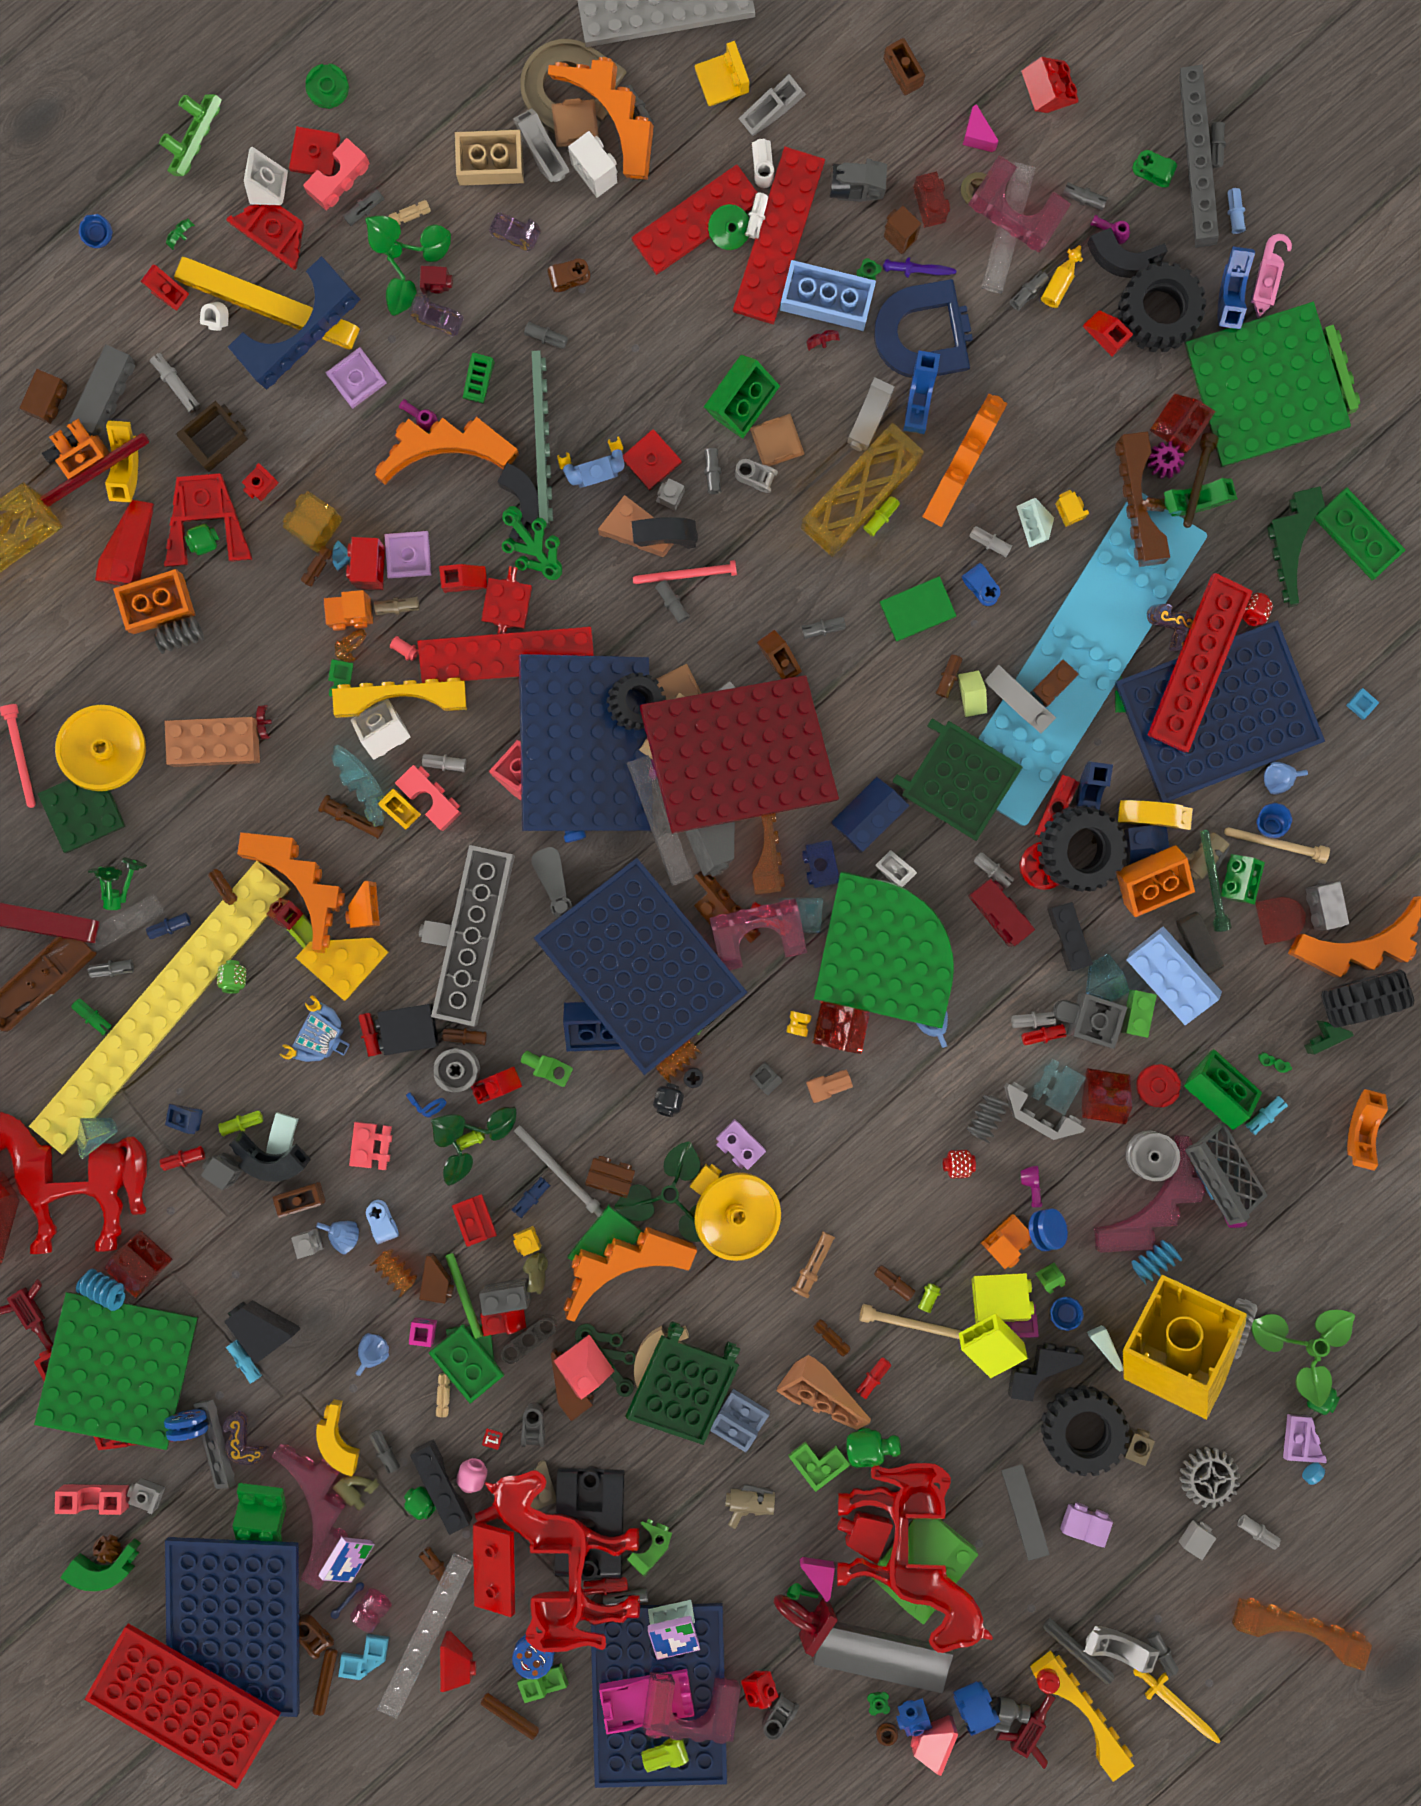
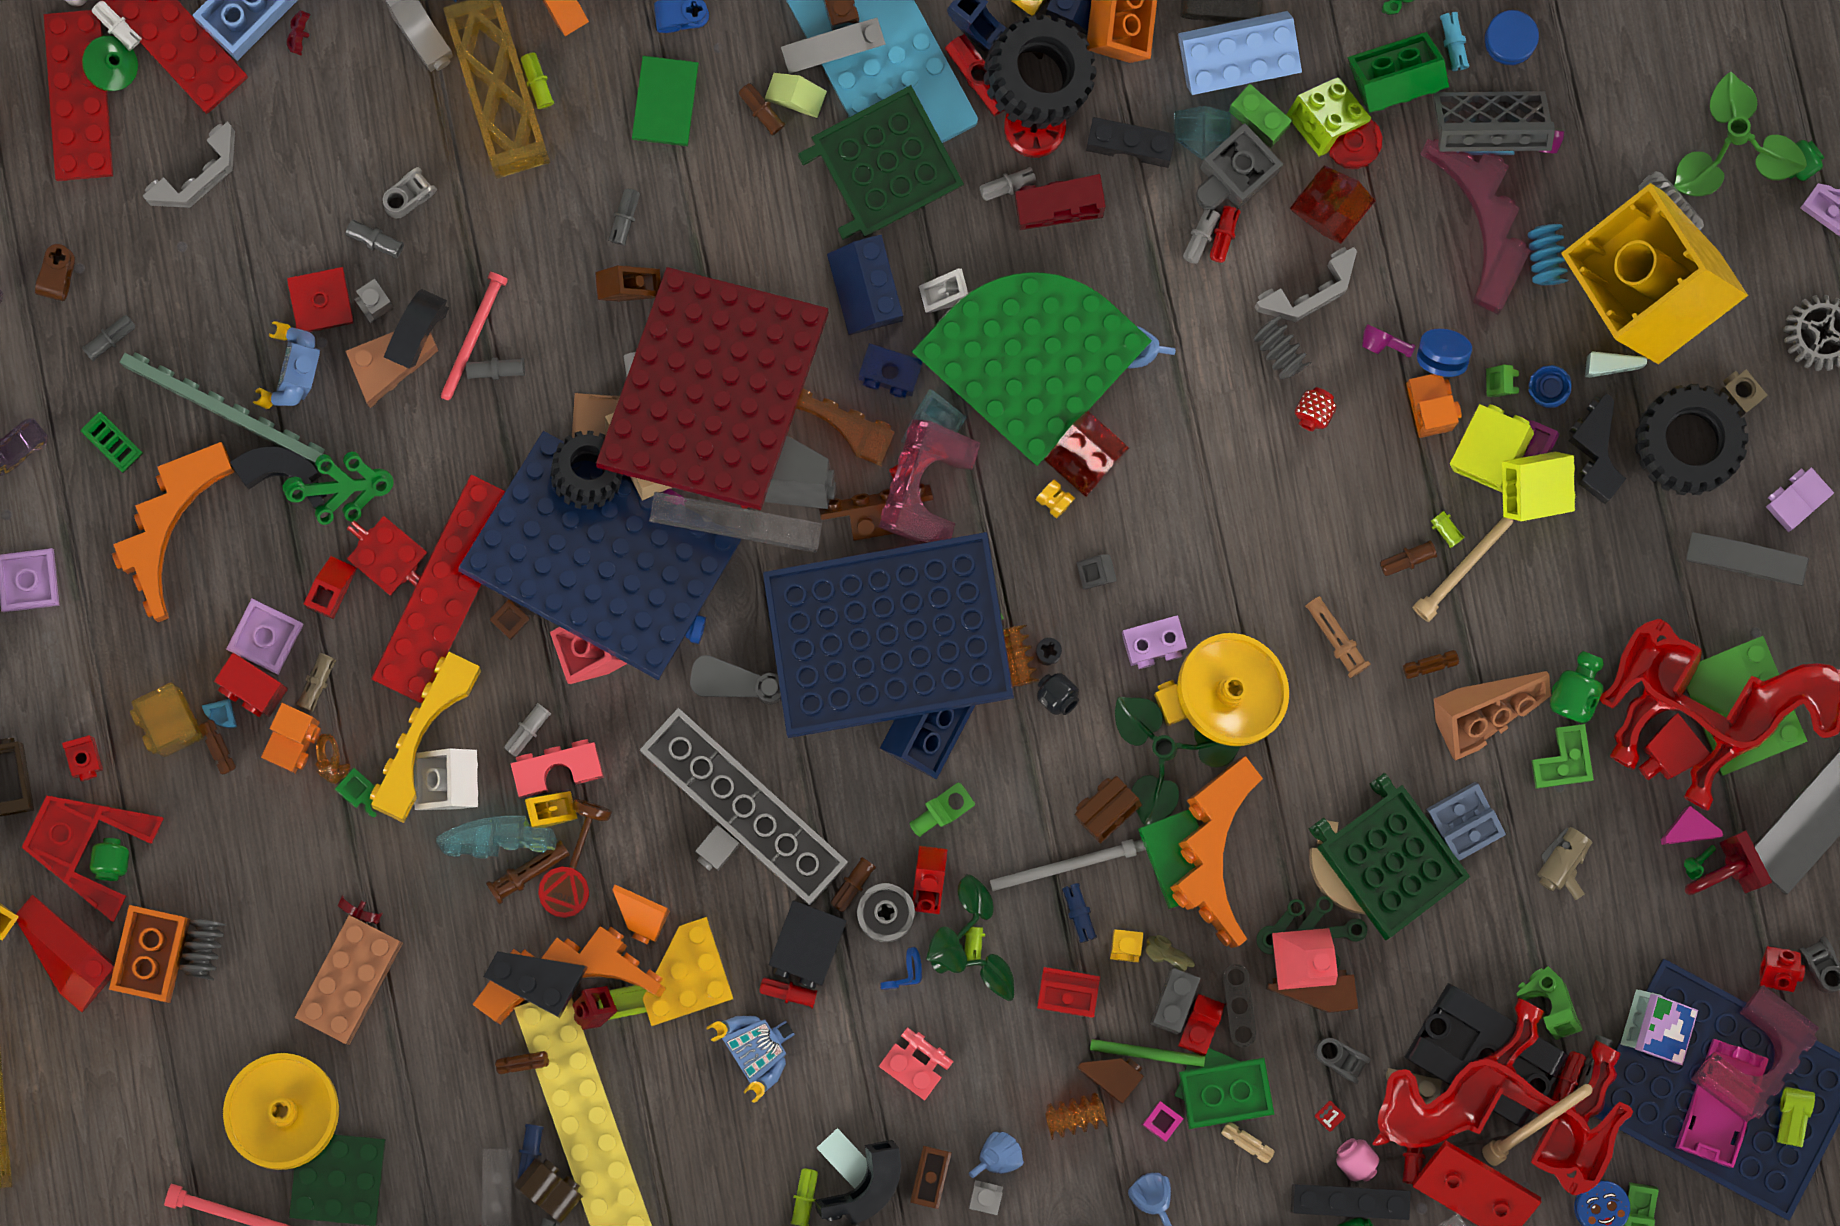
camera: 65 degrees left, 5 degrees down
(111, 897) = (460, 1198): plant -> none
(148, 952) = (548, 1189): none -> dark brown brick
(231, 977) = (631, 1112): bright green head -> none
(278, 866) = (537, 980): none -> black wing
(354, 848) = (563, 888): none -> reddish brown piece
(382, 1226) = (1015, 1100): light blue piece -> none
(405, 649) = (370, 701): coral pin -> none
(425, 425) = (113, 533): magenta bar -> none
(509, 708) = (509, 619): none -> reddish brown plate
(530, 1565) = (1497, 1151): none -> tan piece
(719, 332) = (163, 194): none -> light grey slope
(742, 395) = (309, 157): green slope -> none
(777, 440) = (382, 148): medium nougat piece -> none
(824, 1087) = (1143, 510): nougat piece -> none
(873, 1378) = (1502, 642): red axle -> none
(1064, 1089) = (1298, 245): clear light blue plate -> none
(1165, 1058) = (1326, 114): none -> lime bracket
(1165, 1151) = (1427, 174): light grey wheel -> none
(1291, 1152) = (1511, 37): none -> blue head

